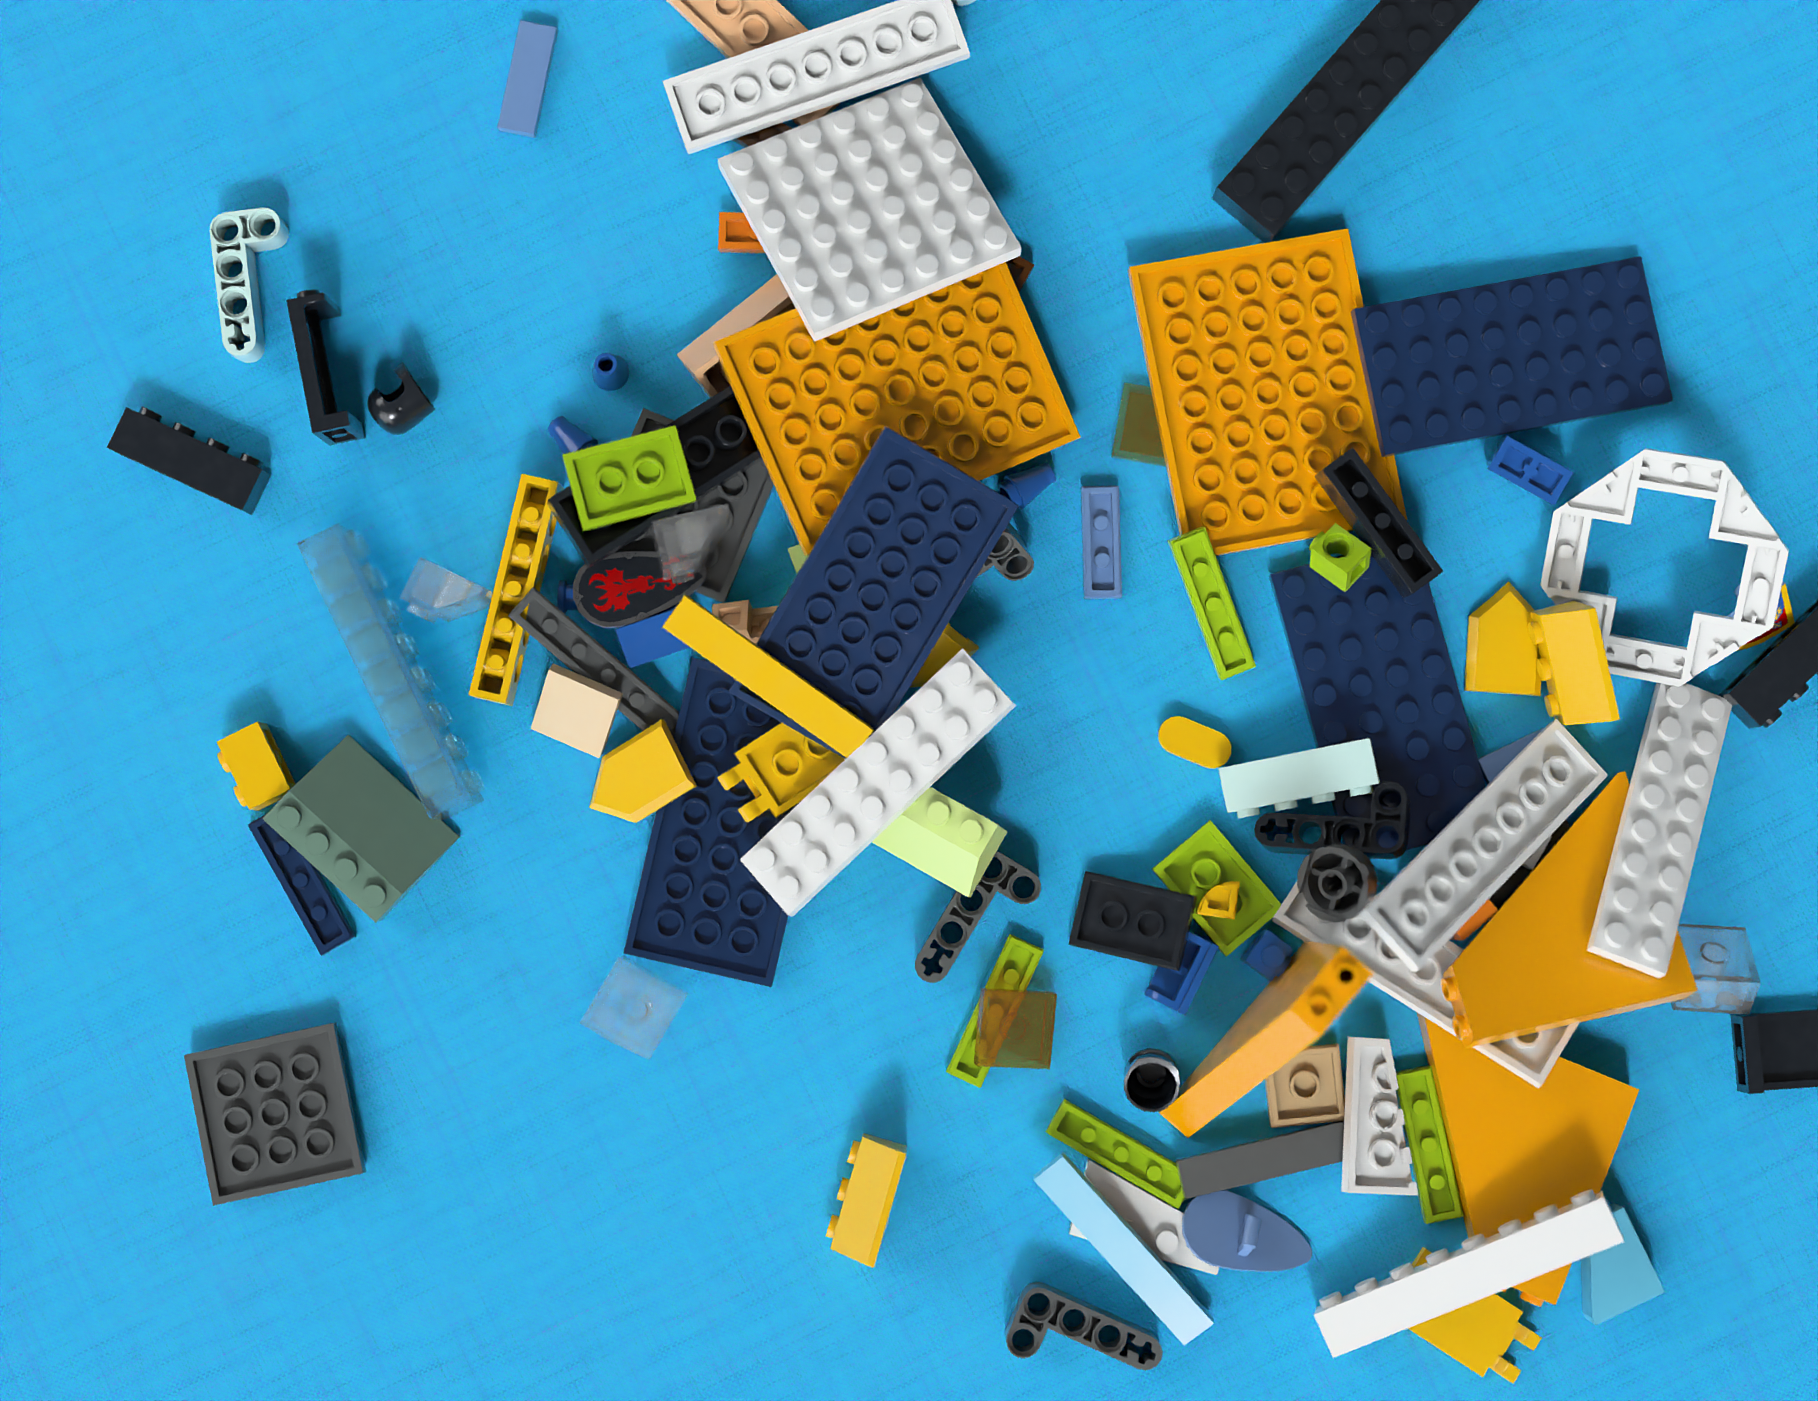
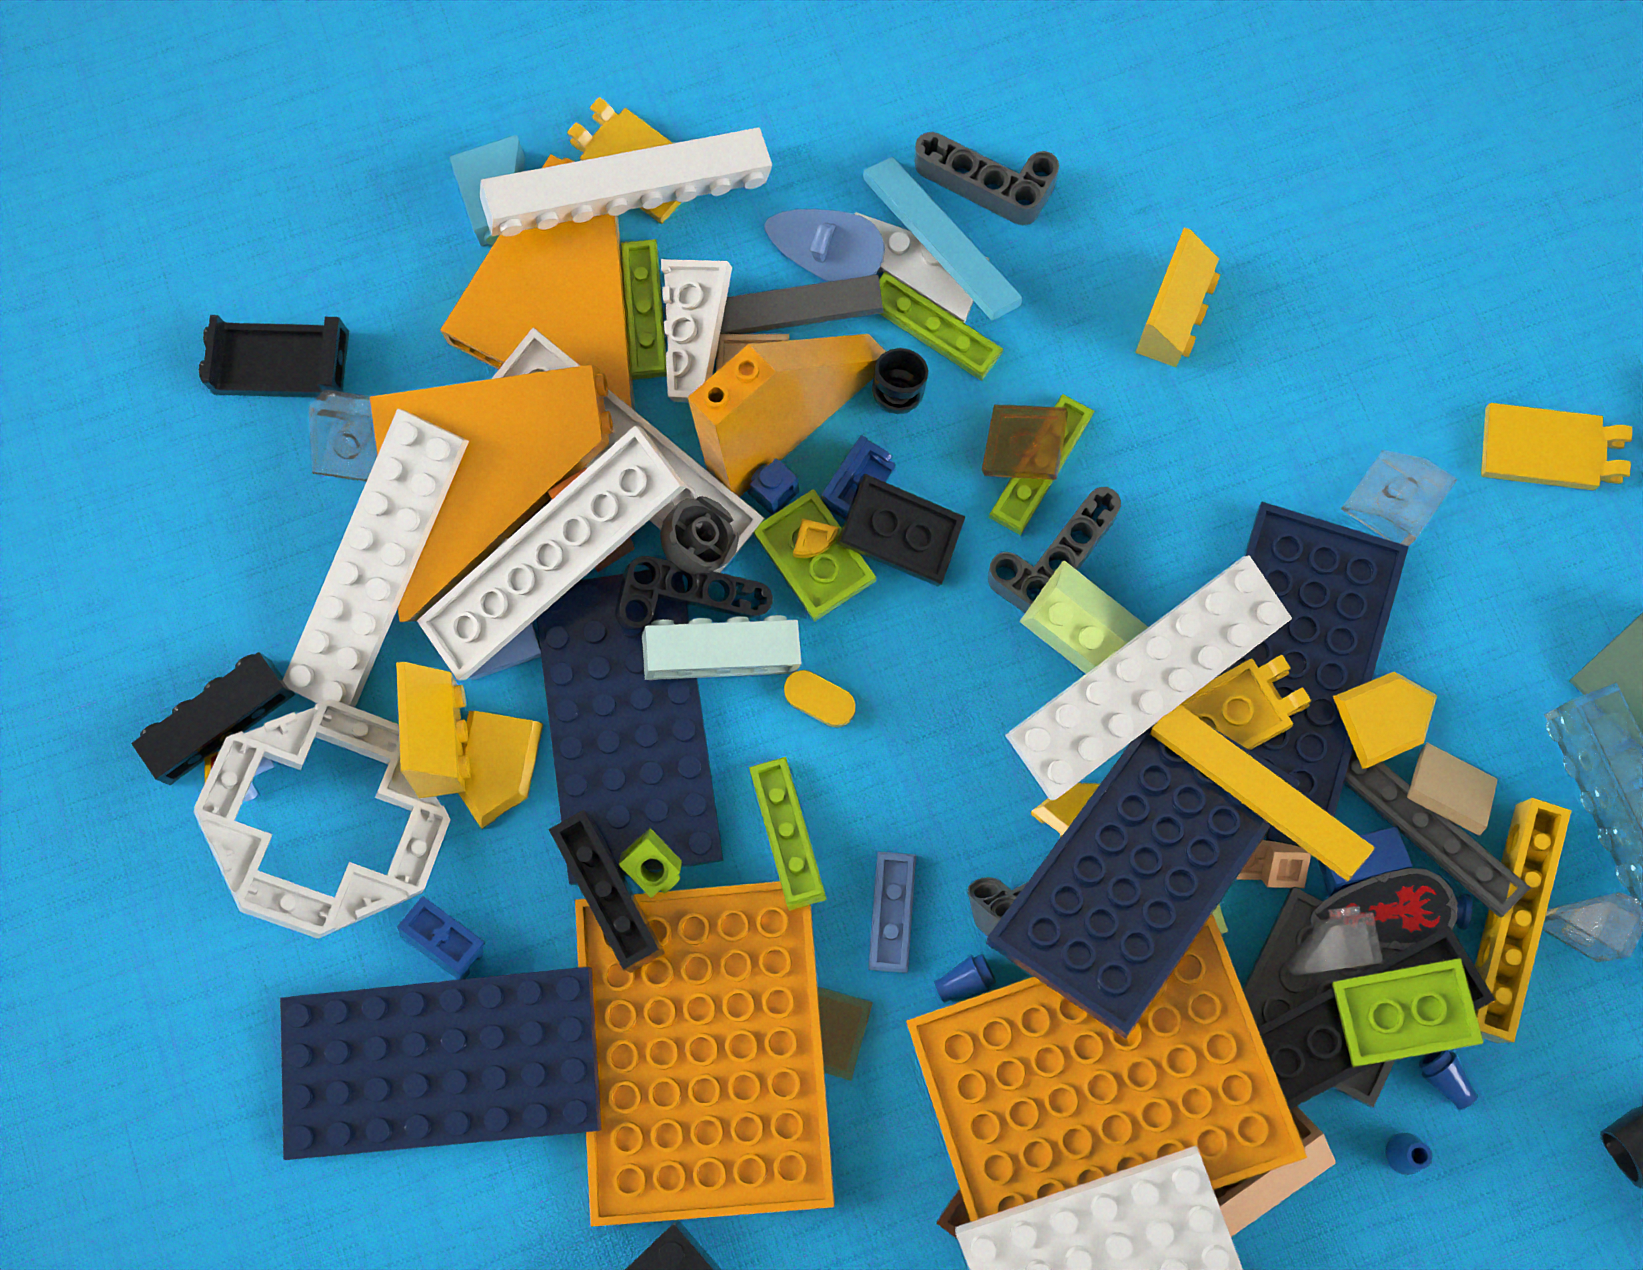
camera: 170 degrees left, 10 degrees down
(480, 1078) = (1551, 447): none -> yellow tile

